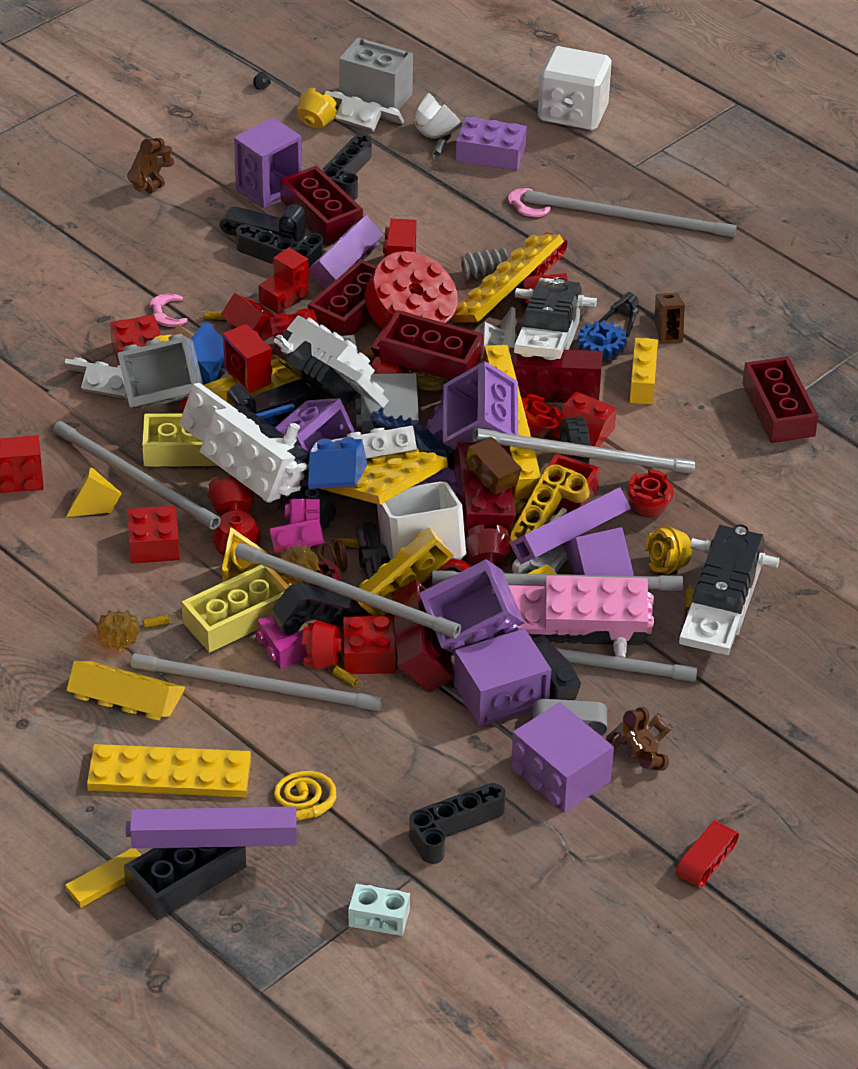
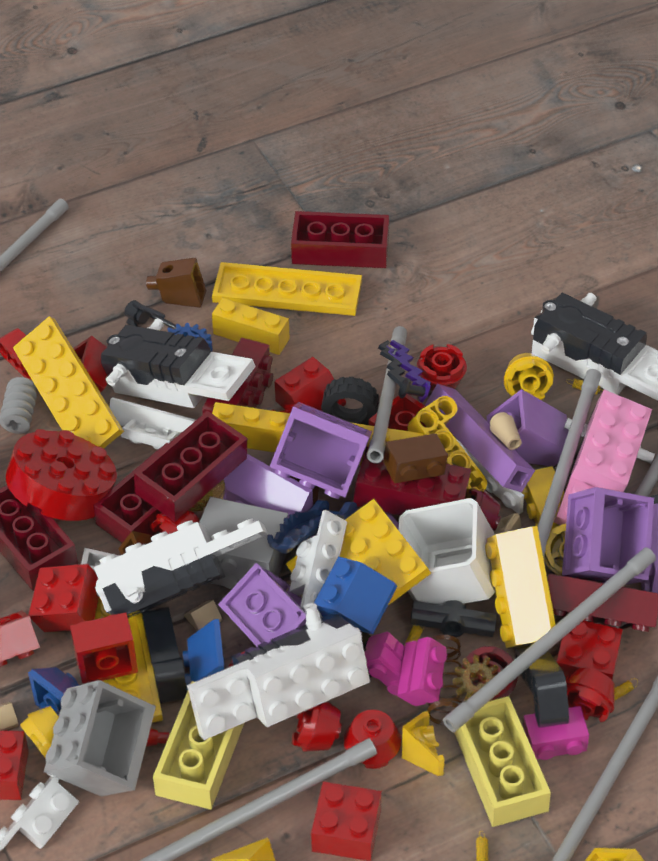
camera: 70 degrees left, 5 degrees up
(572, 527) = (505, 430): none -> tan cone
(611, 474) = (420, 386): none -> piece
(706, 386) = (288, 288): none -> yellow plate

